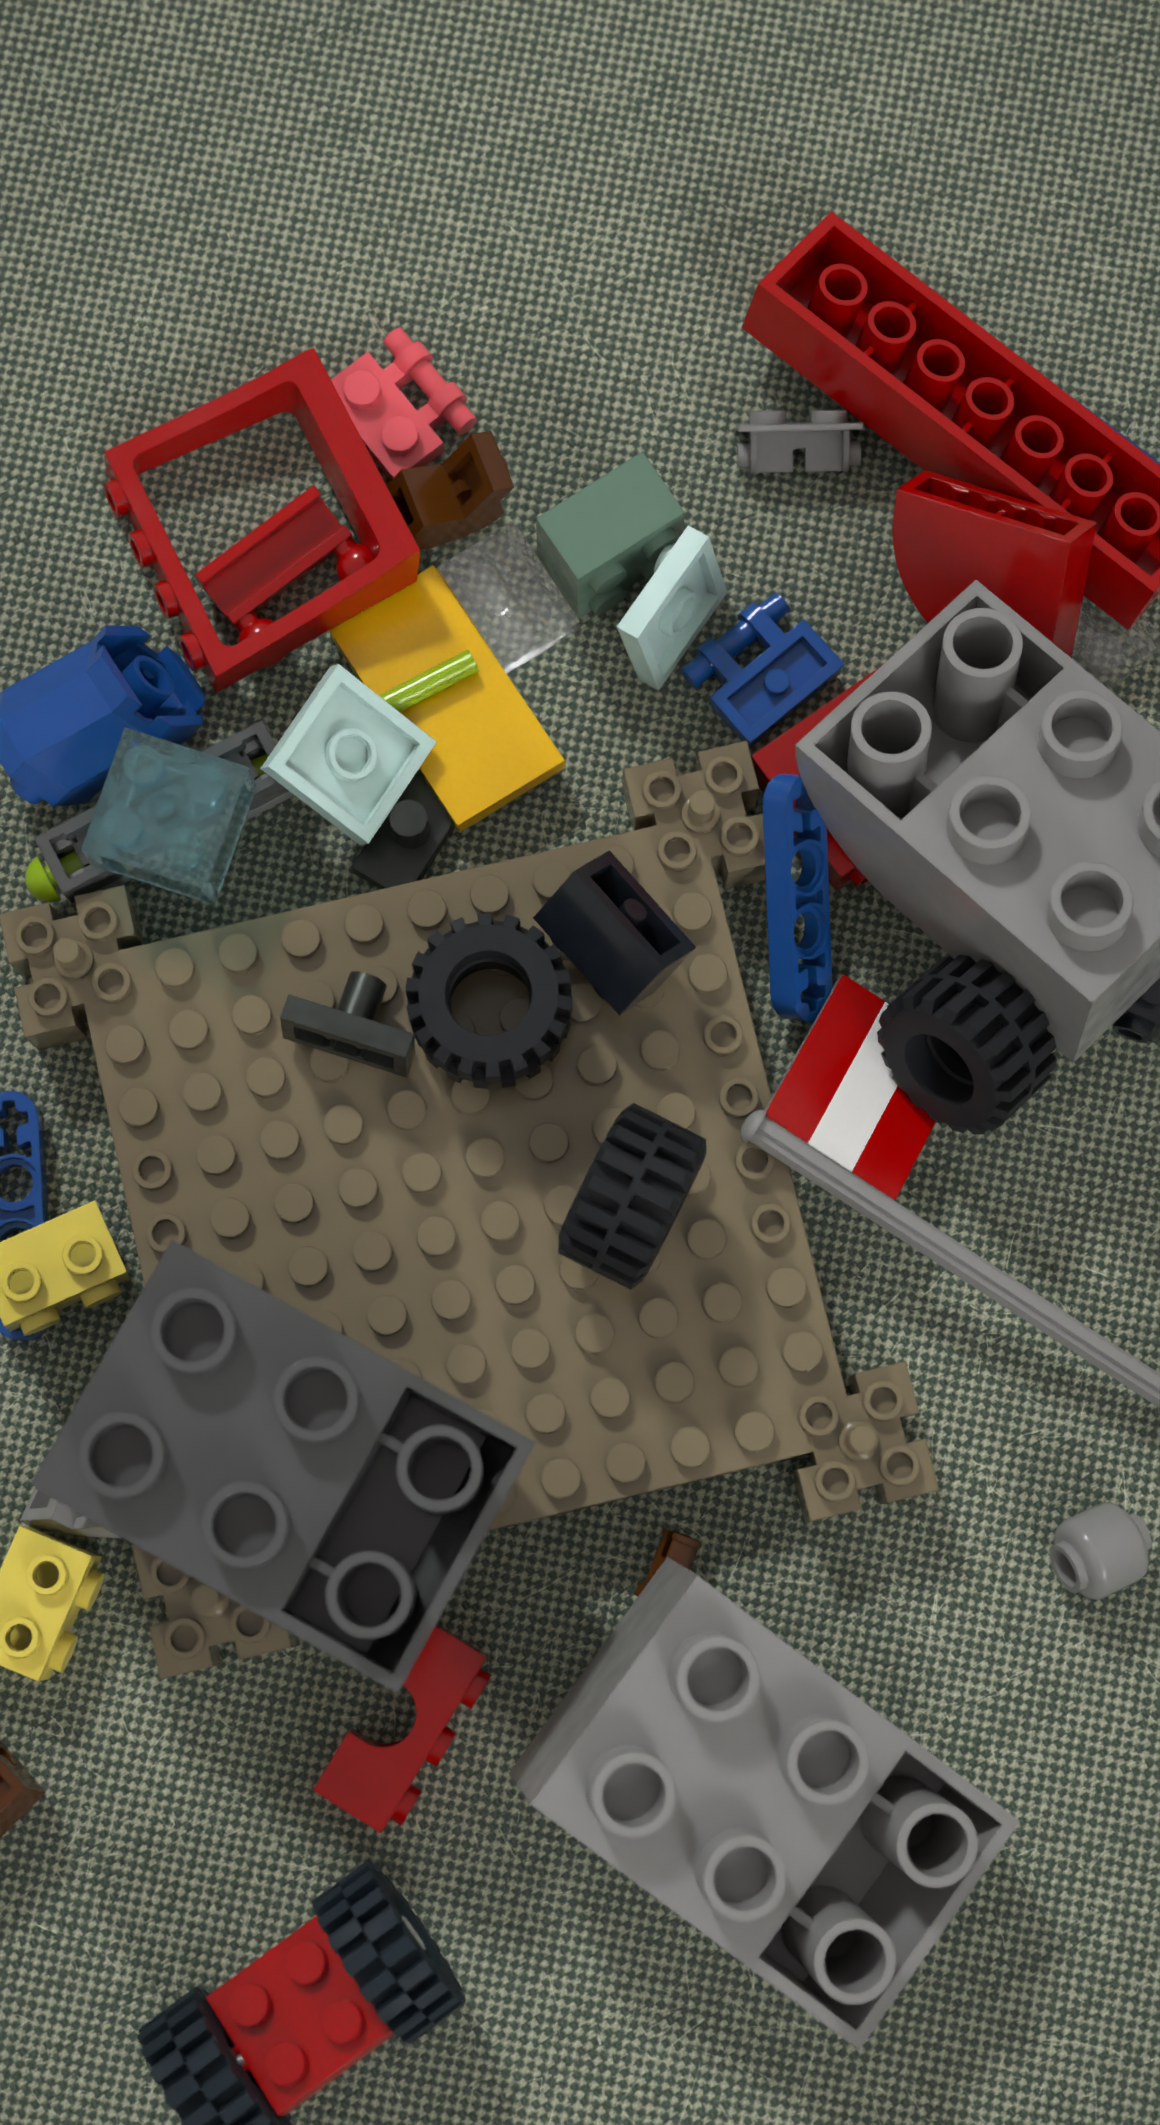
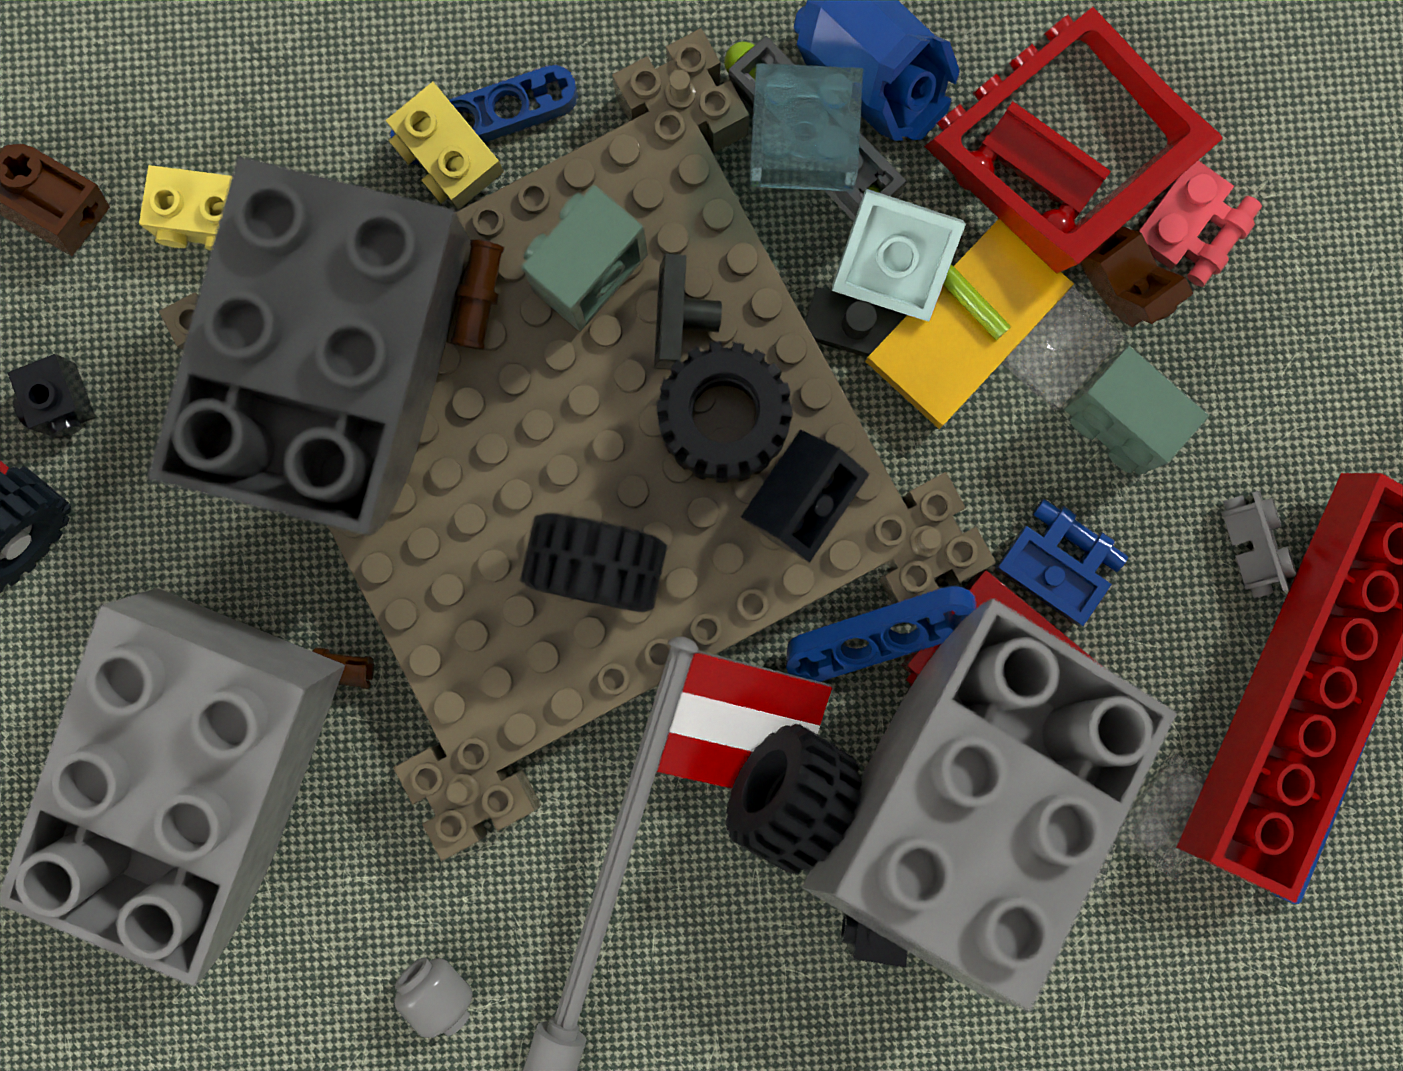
camera: 80 degrees right, 5 degrees up
(226, 1859) = (51, 397): none -> black brick
(255, 1106) = (585, 256): none -> sand green brick
(259, 1264) = (477, 294): none -> reddish brown pin
(376, 1777) = (130, 496): red arch -> none
(672, 607) = (1090, 476): light aqua plate -> none
(1017, 549) = (1215, 734): red brick -> none

